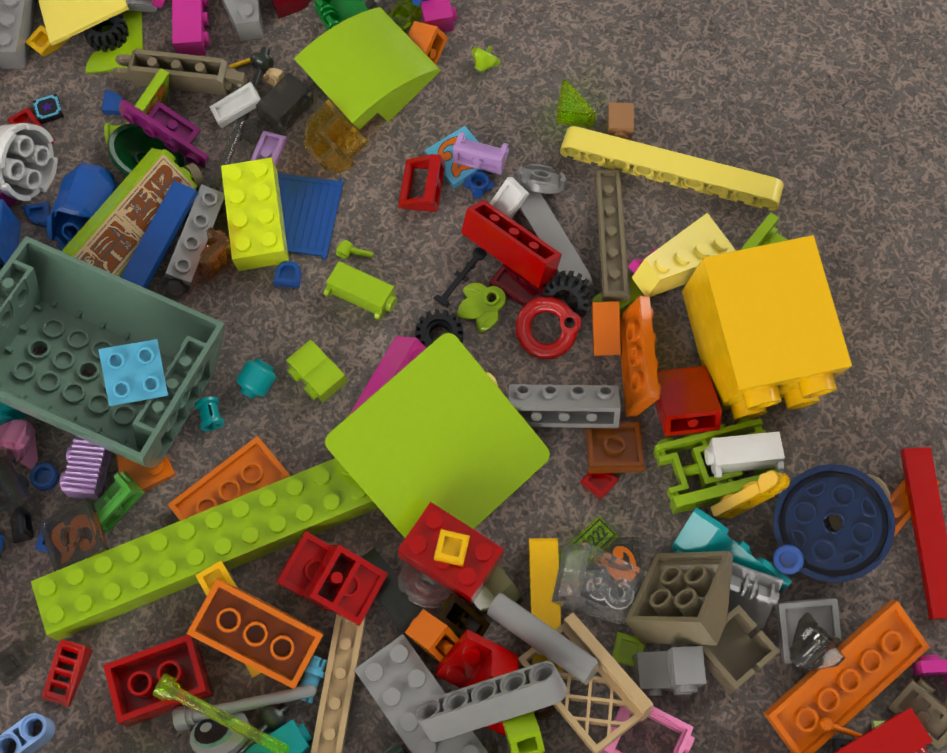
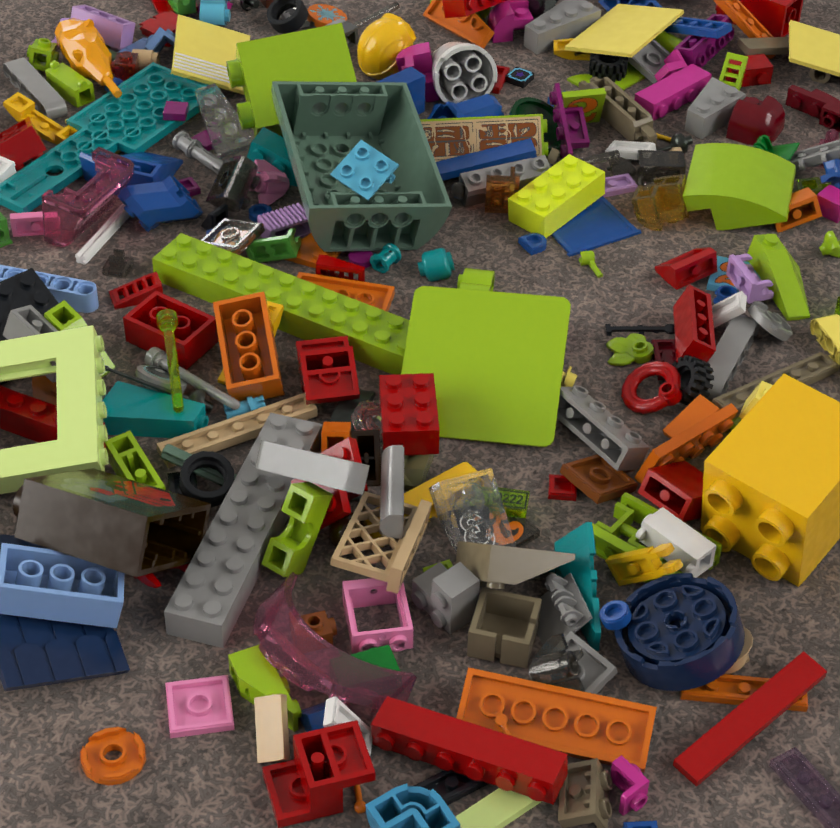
camera: 50 degrees right, 25 degrees down
(189, 434) = (360, 258): none -> magenta tile
(193, 470) = (333, 264): none -> red slope
(361, 290) = (564, 277): lime brick -> none
(437, 320) = (588, 344): black tyre -> none
(451, 547) = (408, 395): yellow tile -> none
(491, 127) = (775, 263): none -> lime wedge

